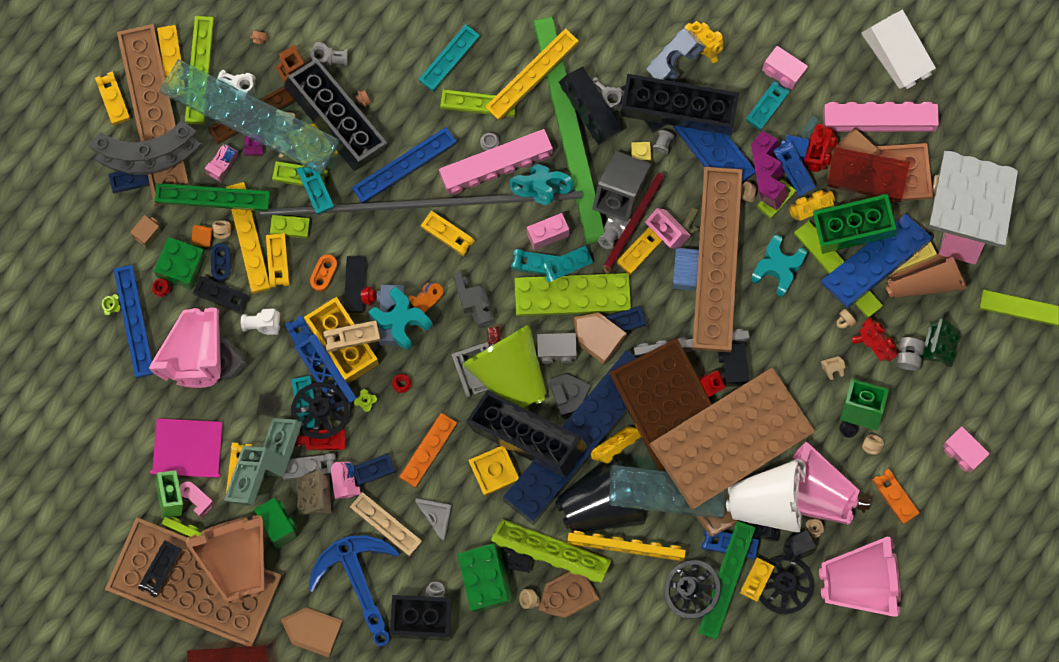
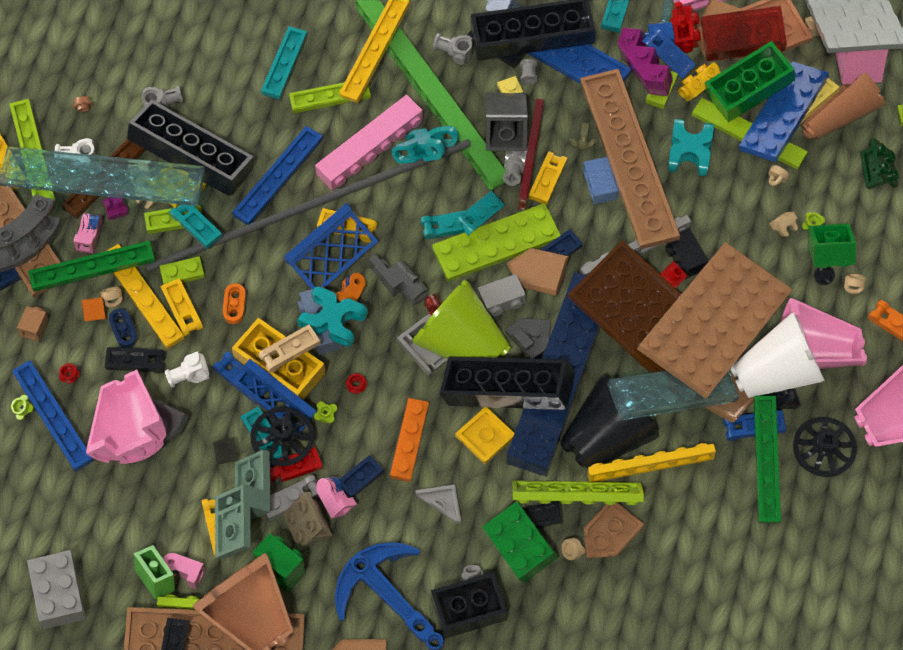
camera: 20 degrees left, 10 degrees down
(84, 479) = (56, 589): none -> light grey brick
(180, 263) = (80, 342): green brick -> none
(187, 447) = (155, 520): dark pink piece -> none
(290, 62) = (123, 113): dark orange brick -> none
(354, 283) = (270, 303): black tile -> none
(363, 98) = (212, 126): nougat plate -> none
(368, 296) = (289, 310): red plate -> none
(385, 524) = (394, 526): tan plate -> none
(417, 237) = (318, 235): none -> blue fence
(489, 141) = (354, 125): light grey plate -> none
(548, 231) = (448, 189): bright pink brick -> none
(590, 105) = (444, 58): black brick -> none
(615, 444) = (600, 366): yellow plate -> none
(667, 228) = (567, 146): bright pink brick -> none
(691, 588) = (734, 480): black wheel -> none
(748, 191) = (632, 89): tan tile -> none
(757, 579) = (796, 450): yellow plate -> none
(799, 546) = (825, 402): black brick -> none
(819, 527) = (837, 380): tan plate -> none
(860, 370) = (813, 217): none -> lime plate
(864, 503) = (871, 340): dark brown plate -> none
(874, 336) = (812, 181): red brick -> none
(910, 354) = (854, 185): light grey wheel -> none

